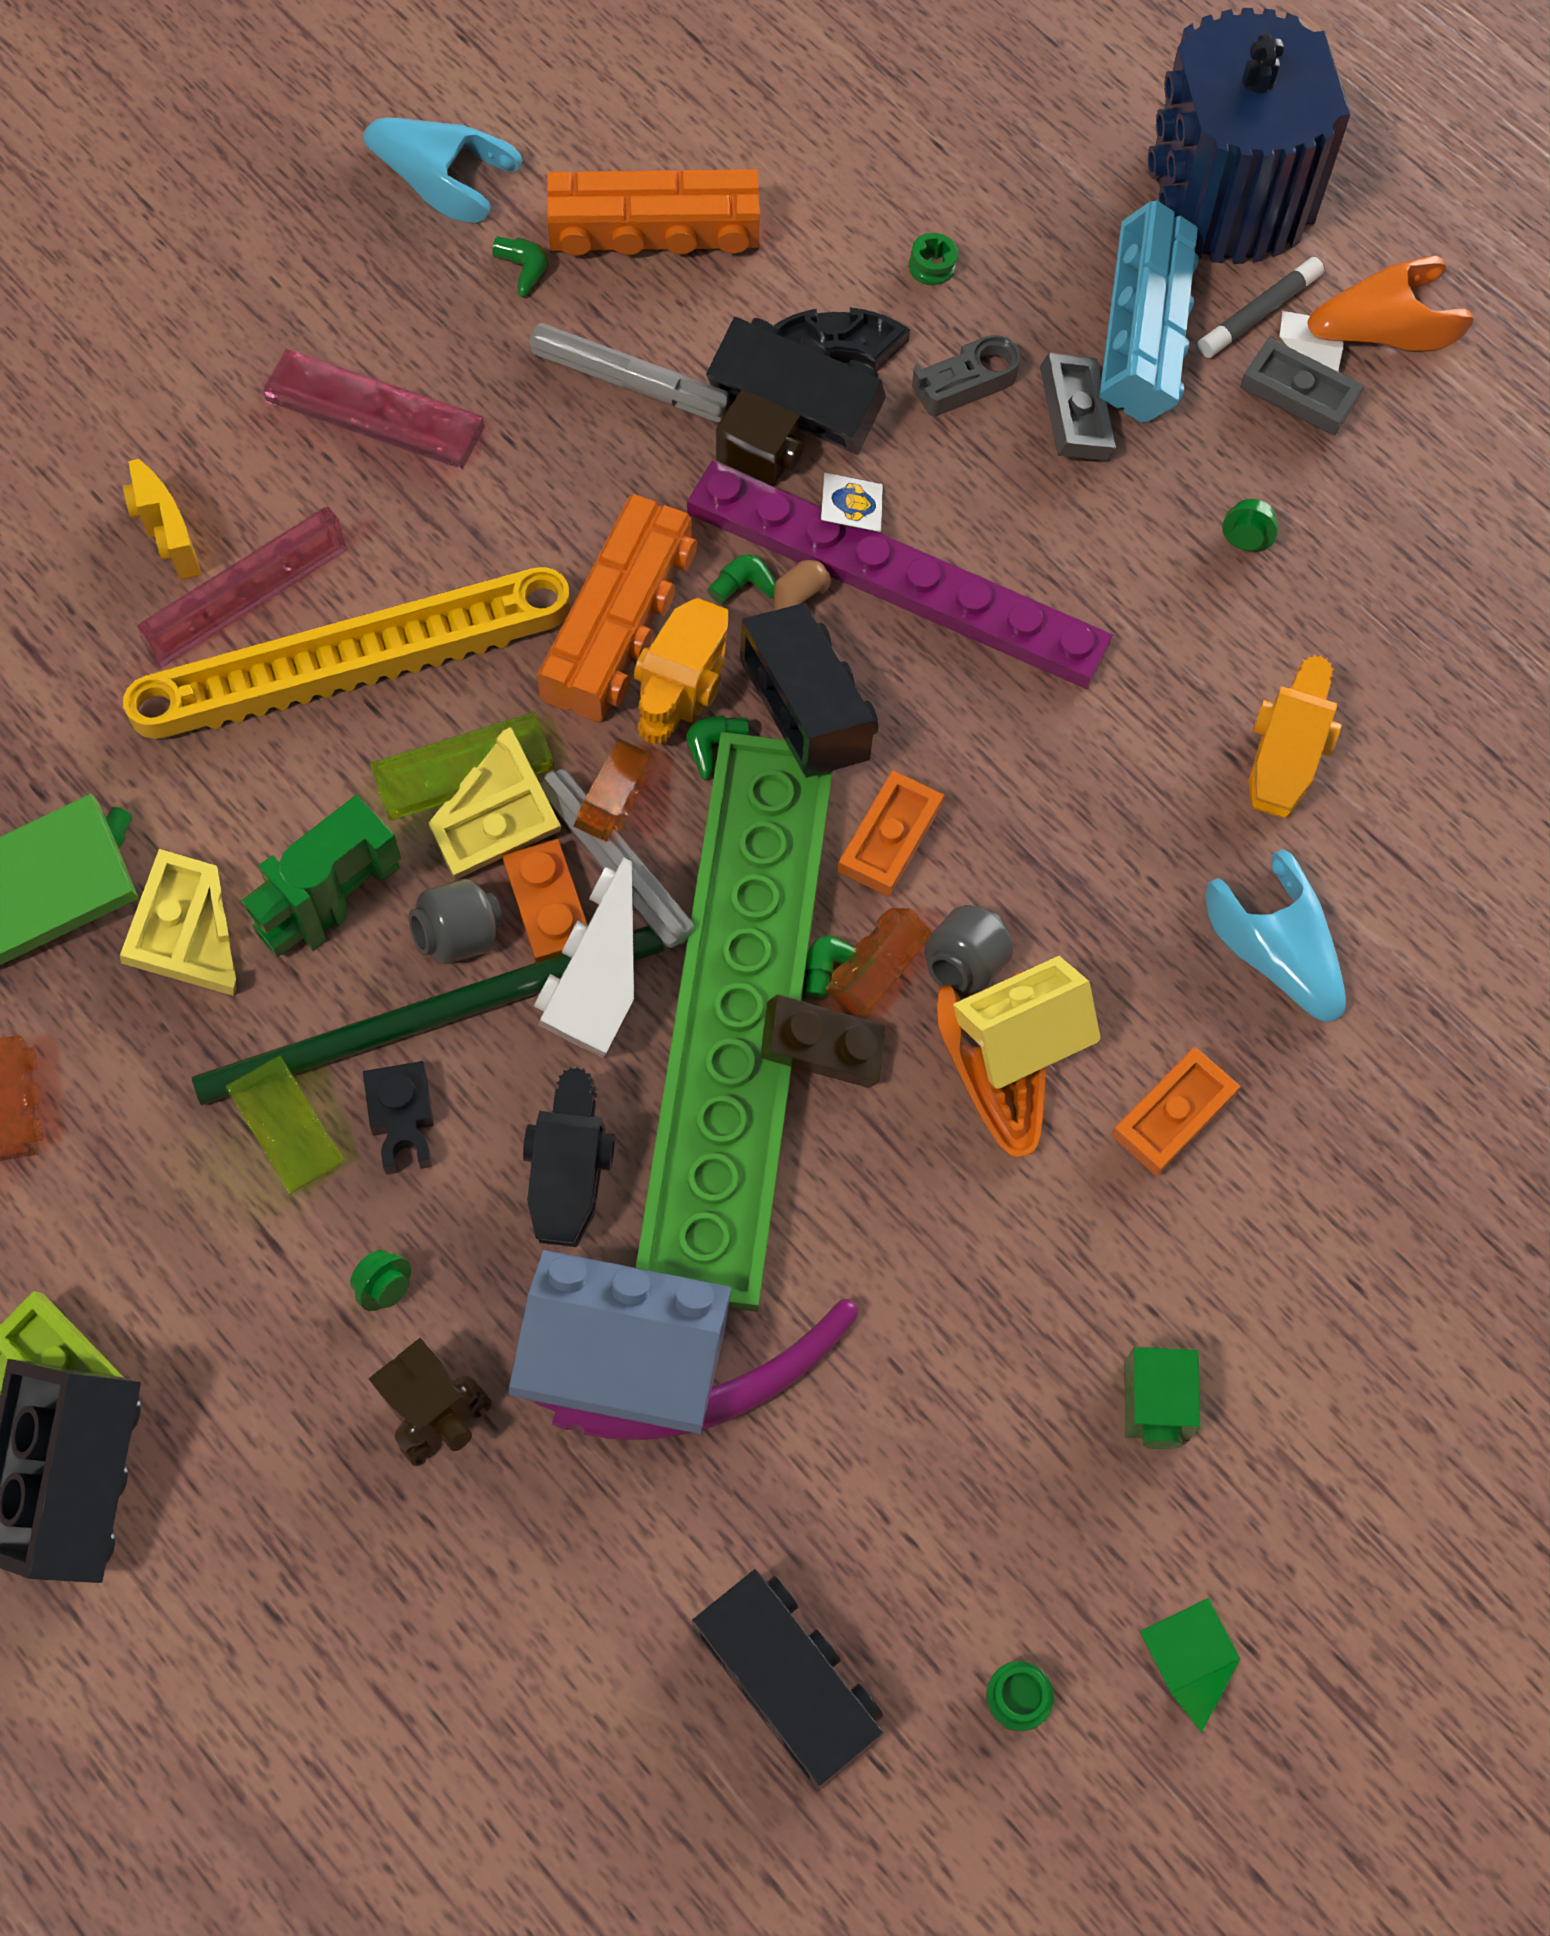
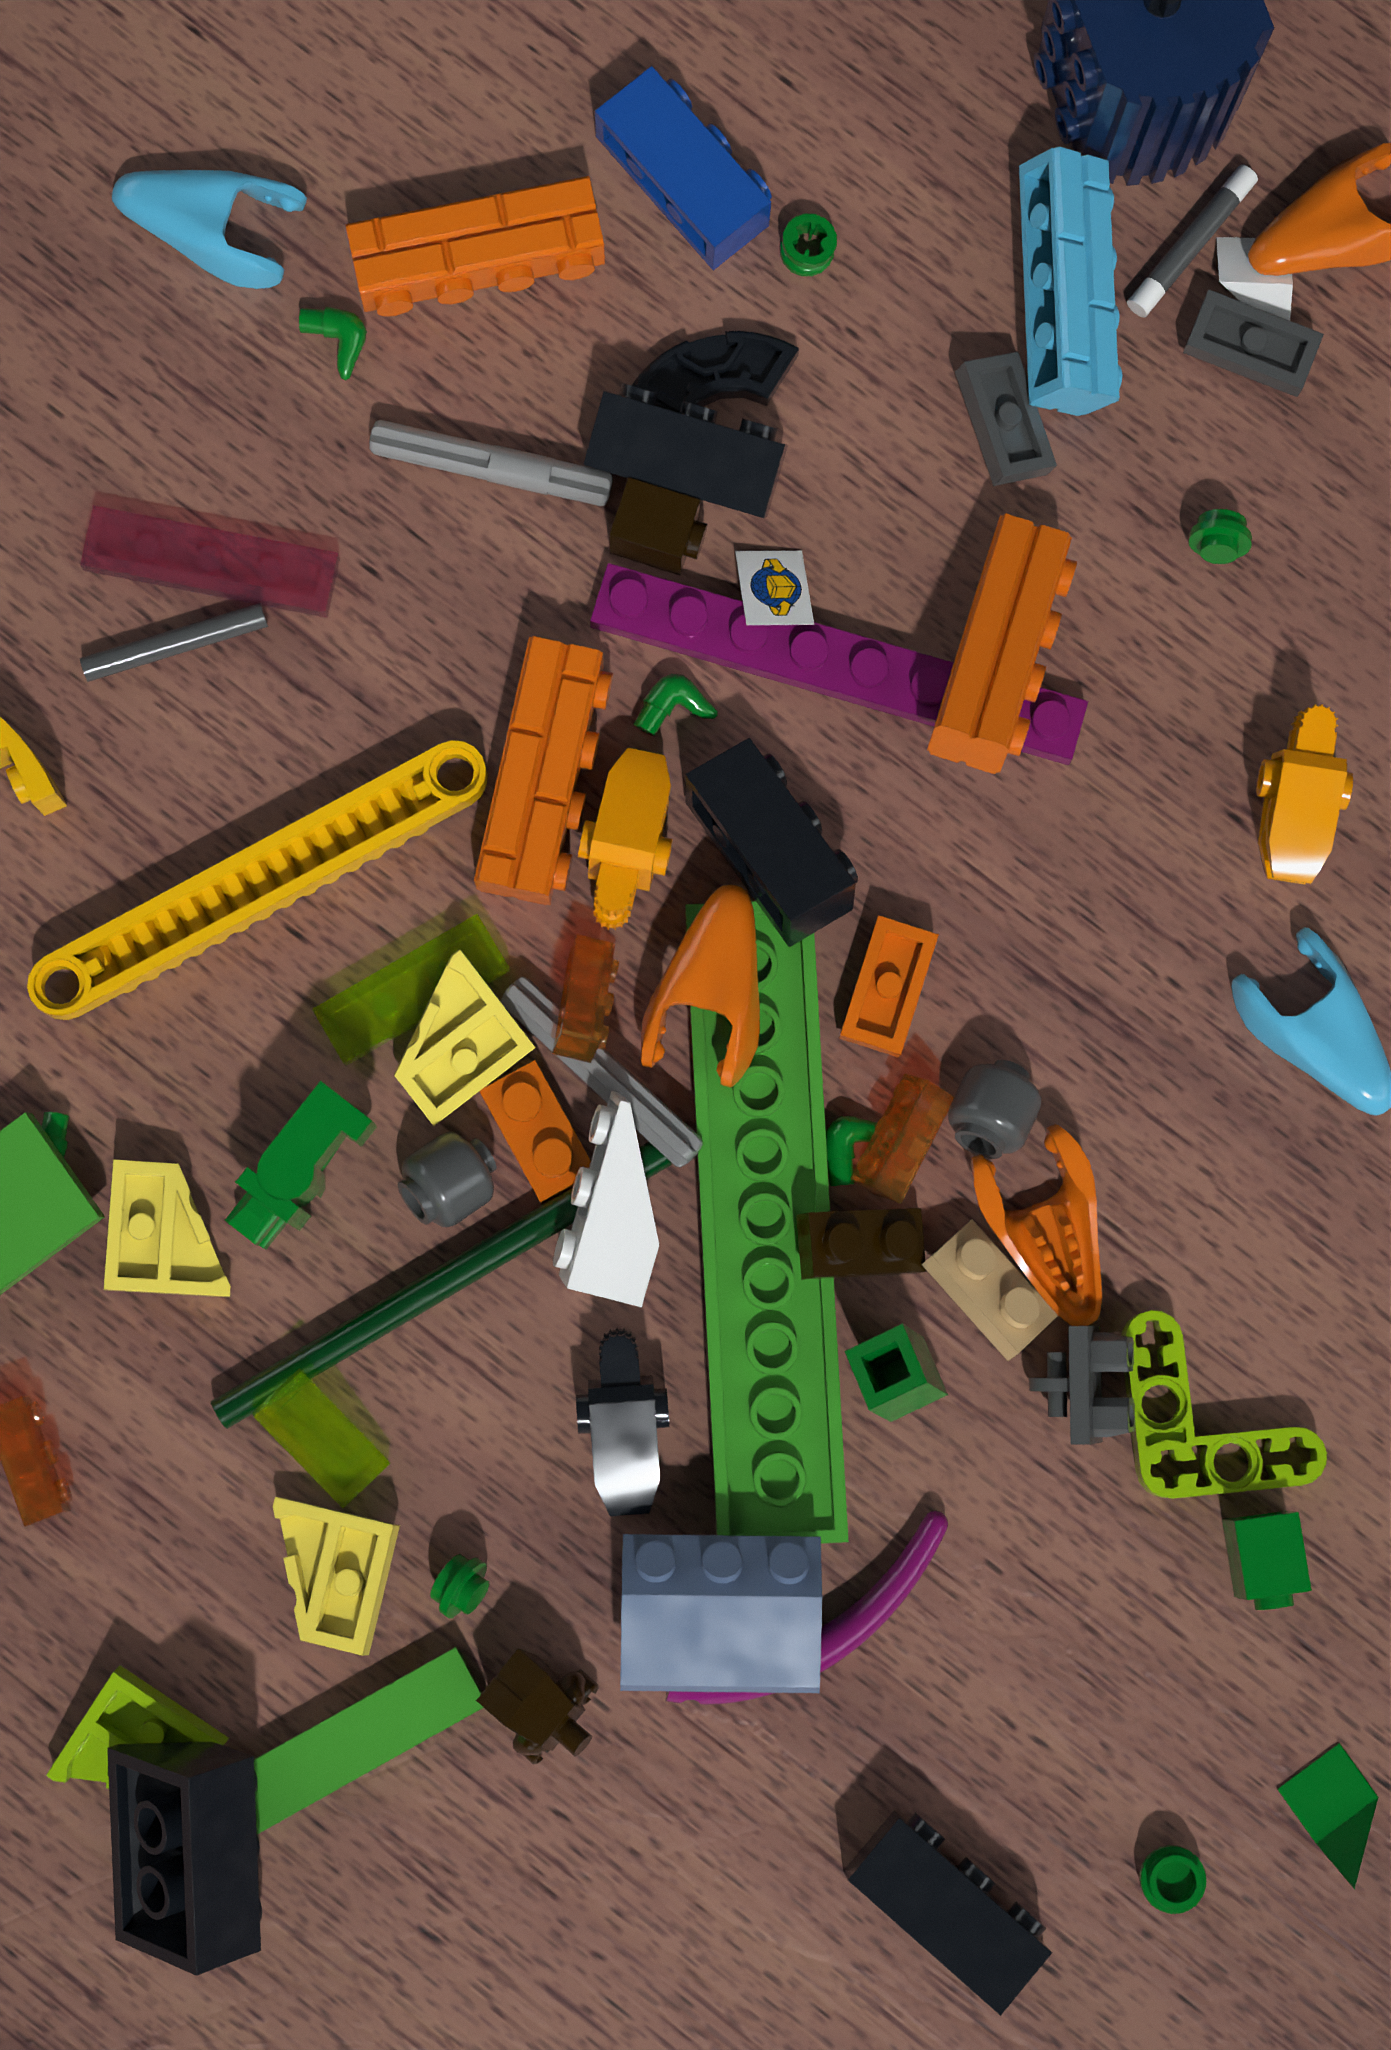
camera: 15 degrees left, 15 degrees up
(242, 587) = (122, 822): clear pink tile -> none
(251, 1408) = (363, 1737): none -> bright green tile
(268, 1247) = (337, 1572): none -> light yellow wing
(326, 463) = (173, 642): none -> dark grey bar
(397, 1107) = (432, 1390): black plate -> none
(707, 732) = (671, 898): green animal -> none
(736, 780) = (714, 973): none -> orange animal
(800, 584) = (732, 707): medium nougat arm -> none
(832, 1156) = (896, 1373): none -> green brick
(839, 183) = (684, 166): none -> blue brick
(936, 1107) = (990, 1290): none -> tan plate
(963, 377) = (870, 398): dark grey piece -> none
(1004, 1202) = (1089, 1356): none -> dark grey hips
(1030, 1020) = (1074, 1187): light yellow panel -> none
(1040, 568) = (1001, 643): none -> orange brick
(1093, 1273) = (1179, 1434): none -> lime beam
(1175, 1111) = (1237, 1247): orange plate -> none

